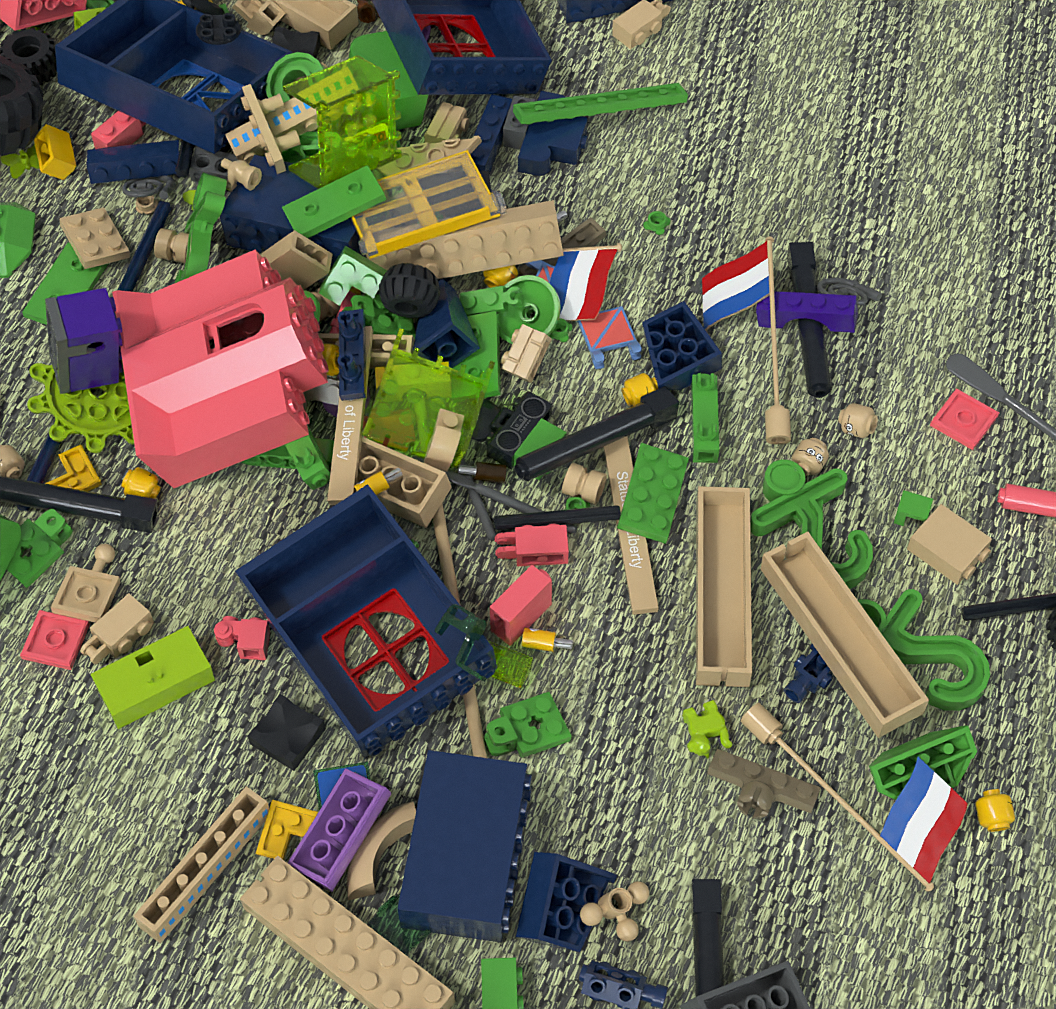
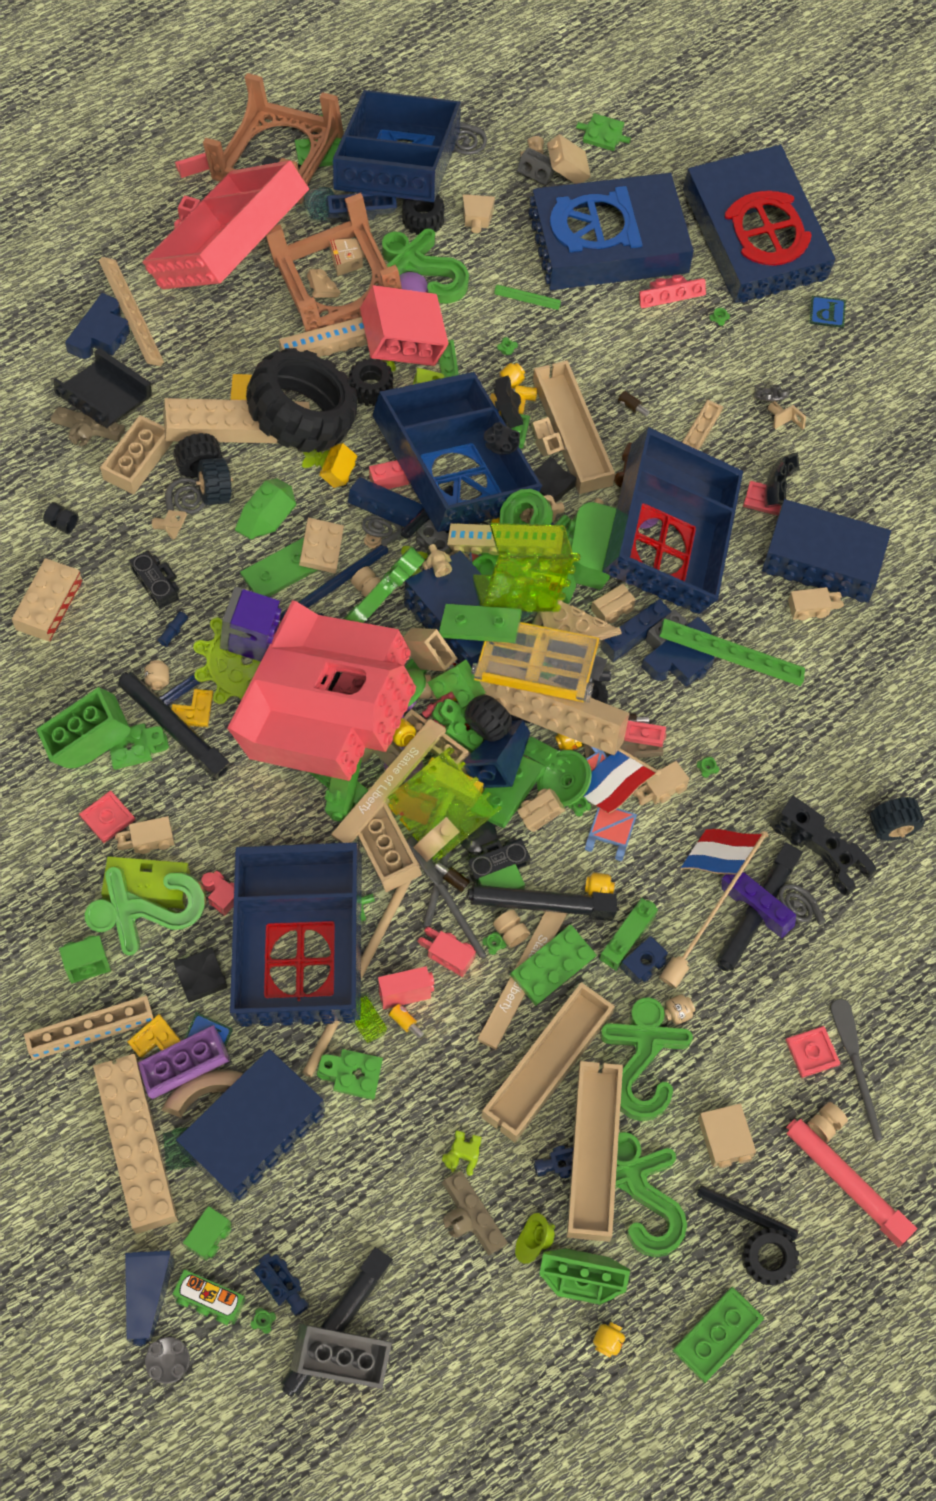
camera: 30 degrees right, 5 degrees up
(88, 592) = (147, 797): tan plate -> none
(141, 483) = (227, 745): yellow head -> none
(144, 795) = (84, 959): none -> bright green brick
(154, 710) = (126, 907): none -> bright green piece
(274, 145) = (471, 545): tan plate -> none
(352, 354) = (417, 740): dark blue plate -> none
(378, 481) = (369, 843): yellow piece -> none
(471, 625) = (345, 987): clear green piece -> none
(555, 897) = (286, 1203): dark blue wedge -> none
(559, 517) = (475, 941): black axle -> none
(578, 222) = (645, 733): none -> coral panel
(626, 929) = (314, 1248): tan piece -> none
(629, 262) = (661, 787): none -> tan brick
(679, 347) = (647, 872): dark blue wedge -> none
(744, 421) = (649, 950): none -> dark blue brick
(795, 217) = (806, 827): none -> black brick
(844, 763) = (535, 1236): none -> lime piece
(858, 420) = (733, 1004): tan head -> none
(876, 160) = (897, 818): none -> black wheel
(913, 506) = (721, 1093): bright green panel -> none
(919, 820) = (554, 1310): flag -> none
(1033, 468) = (829, 1120): none -> tan wheel

